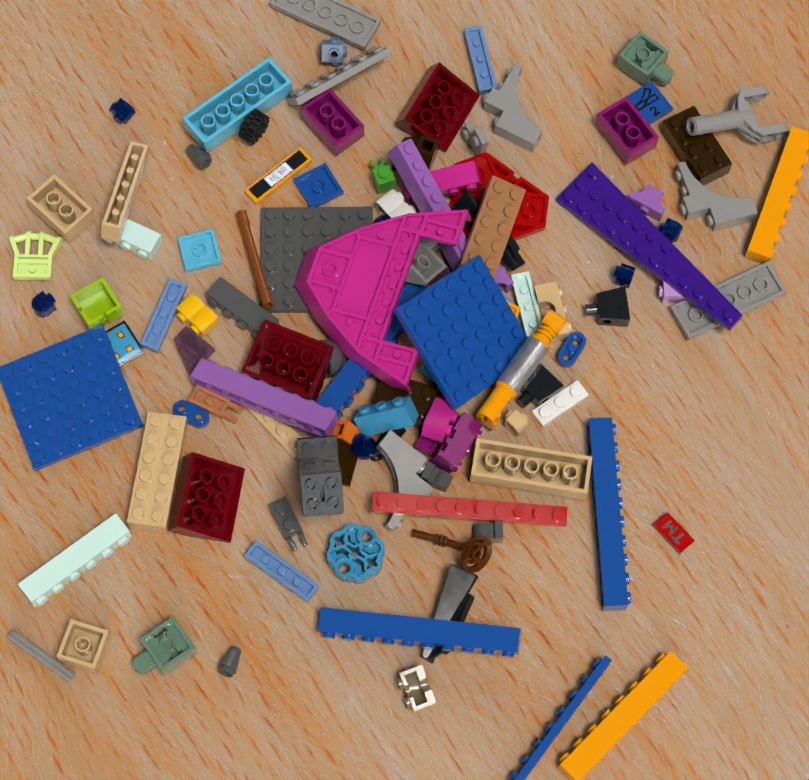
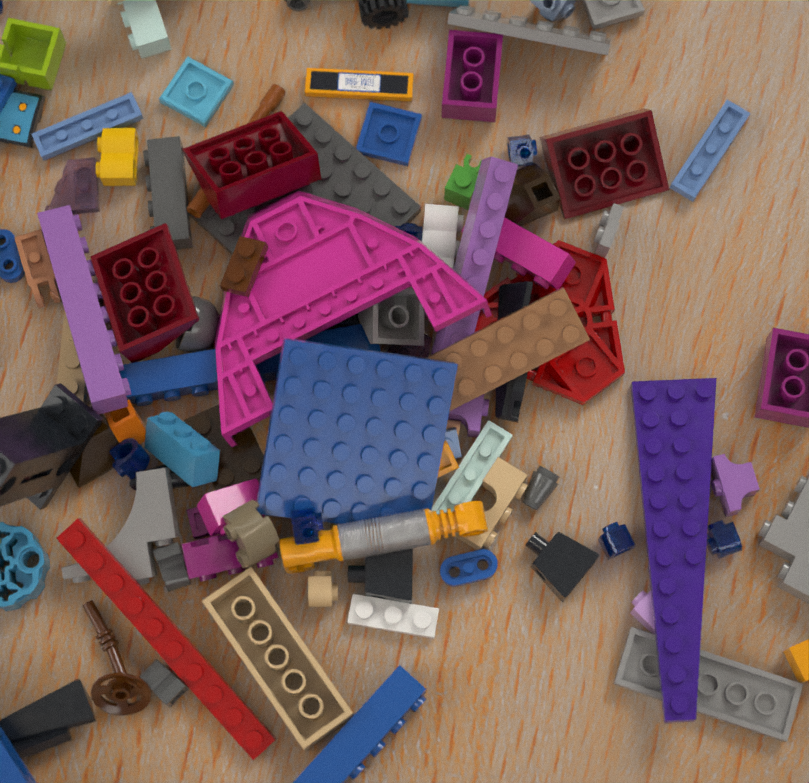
camera: 50 degrees right, 5 degrees up
(274, 255) = (253, 164): none -> dark red slope
(329, 302) = (244, 266): none -> reddish brown plate
(392, 137) = (521, 150): none -> clear blue plate
(463, 418) = (252, 532): none -> dark tan cylinder
(485, 392) = (306, 525): none -> clear blue plate
(510, 119) = (684, 222): light grey arch -> none
(565, 281) = (540, 487): none -> dark grey cone

